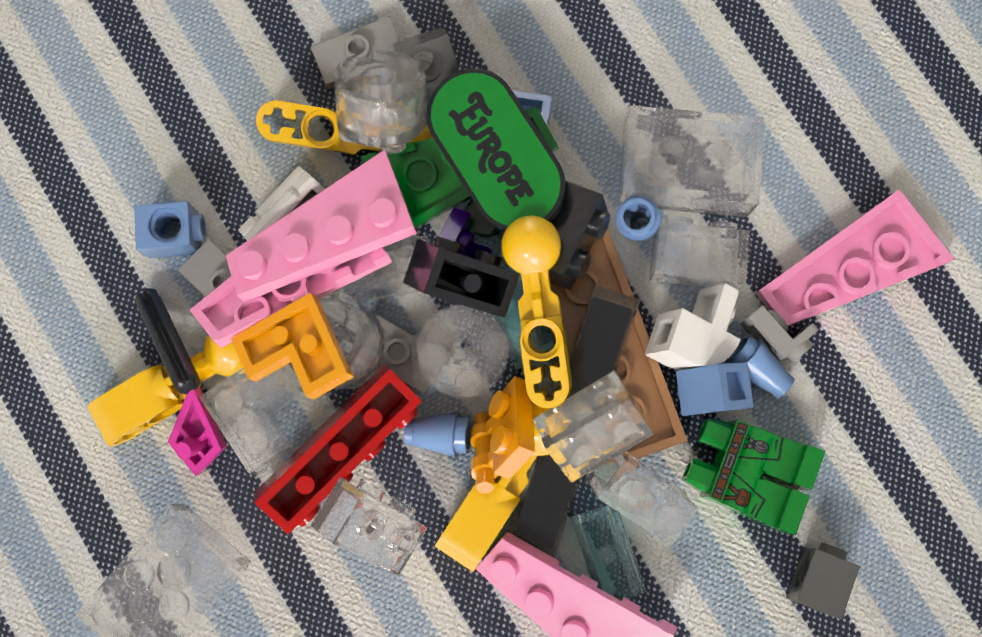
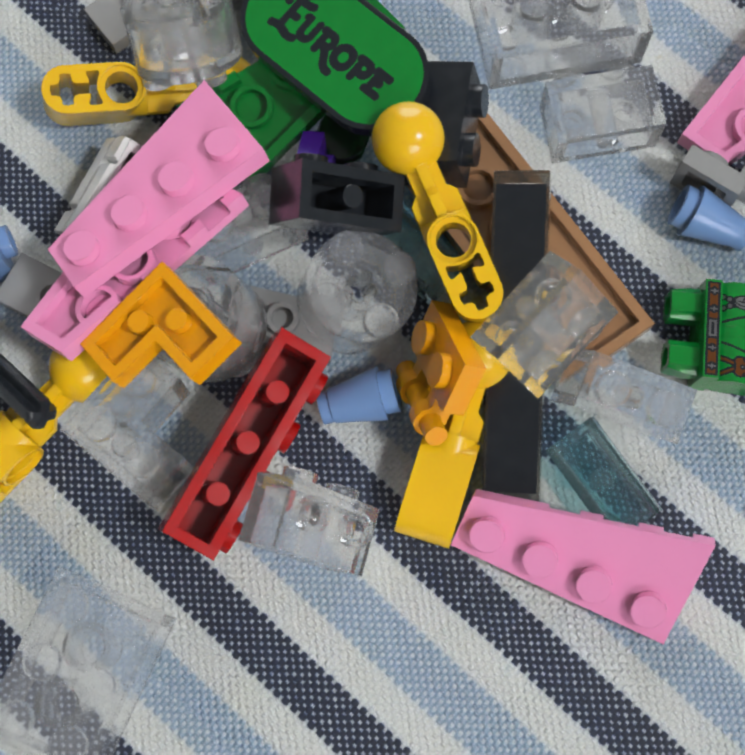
camera: 15 degrees left, 5 degrees down
(196, 434) = (67, 480): dark pink piece -> none
(637, 208) = (520, 89): medium blue cone -> none
(696, 338) = (625, 200): white brick -> none
(714, 388) = (667, 254): medium blue brick -> none

